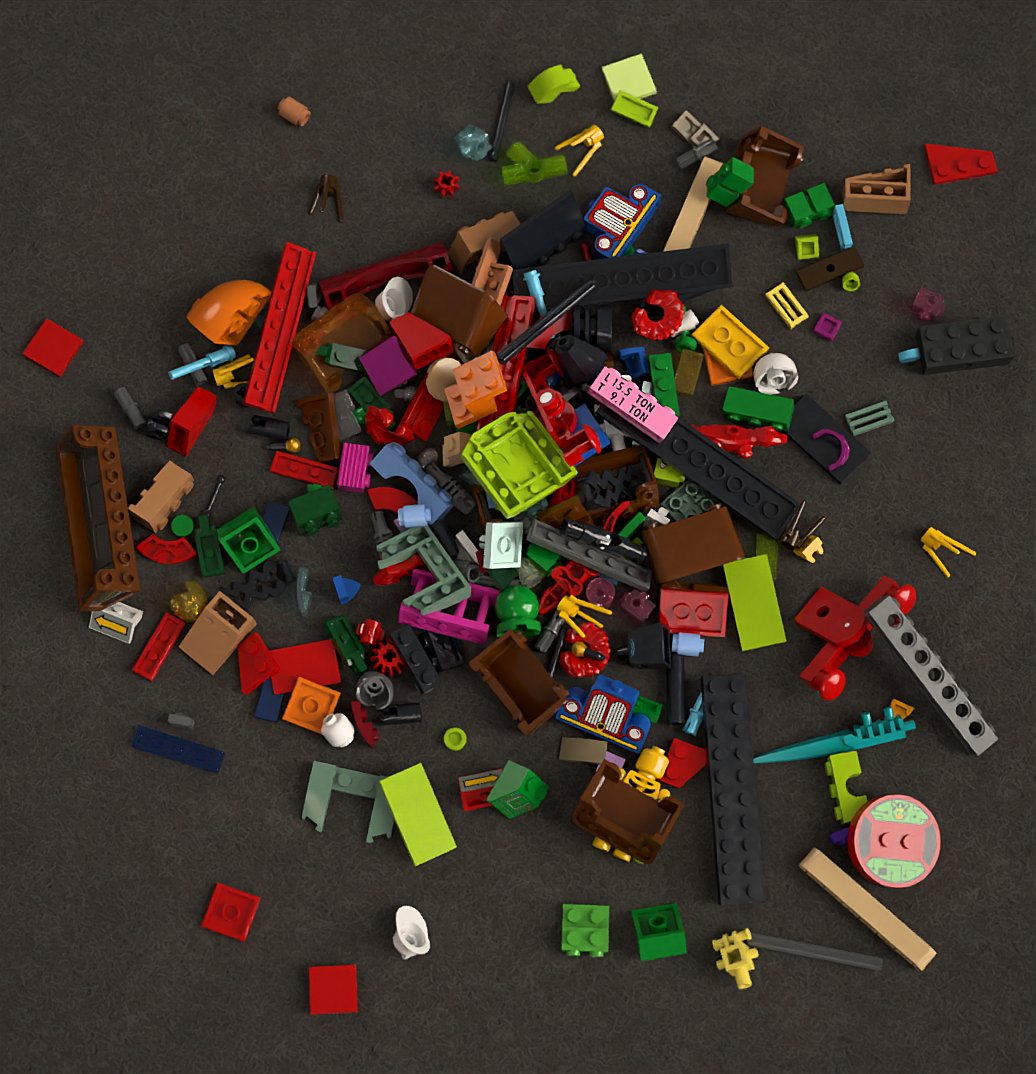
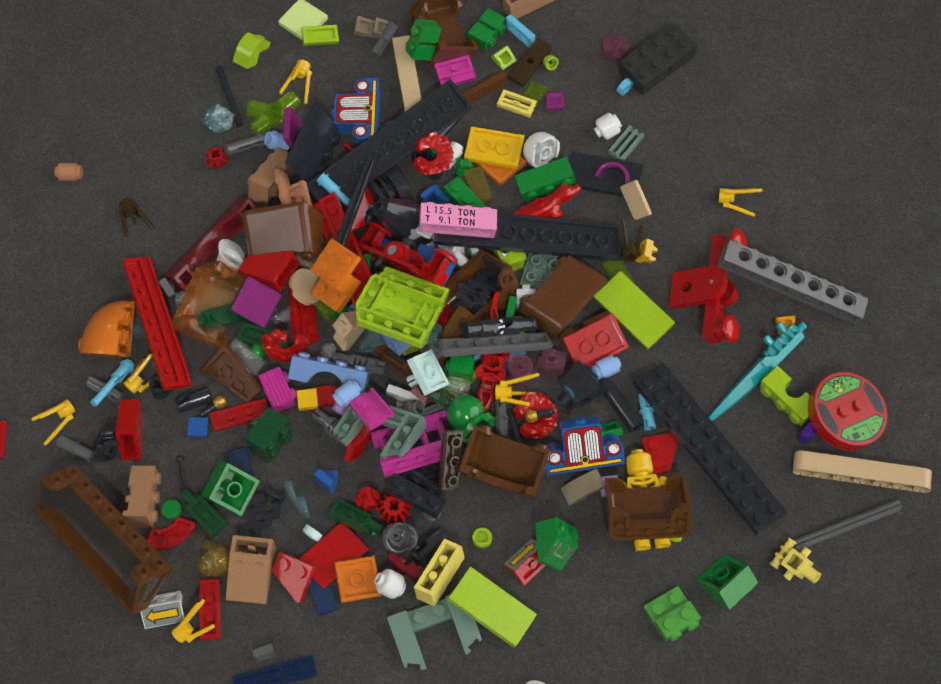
camera: 30 degrees left, 10 degrees down
(123, 652) = (184, 629): none -> yellow plant
(142, 361) = (63, 409): none -> yellow plant
(257, 458) = (198, 427): none -> blue tile
(297, 633) = (312, 533): none -> light aqua tile
(376, 496) = (307, 399): none -> yellow tile
(389, 749) = (439, 572): none -> light yellow brick
(426, 547) = (371, 409): none -> dark pink plate
(469, 646) = (450, 459): none -> dark brown tile
(495, 189) = (245, 144): none -> dark grey pin
(518, 203) = (275, 140): none -> light blue brick
(538, 198) = (292, 126): none -> magenta tile
(746, 233) = (458, 70): none -> dark pink plate
(762, 270) = (486, 87): none -> reddish brown tile
(814, 304) = (535, 91): none -> clear neon green tile
(834, 487) = (635, 199): none -> tan slope
(862, 388) = (607, 126): none -> white head

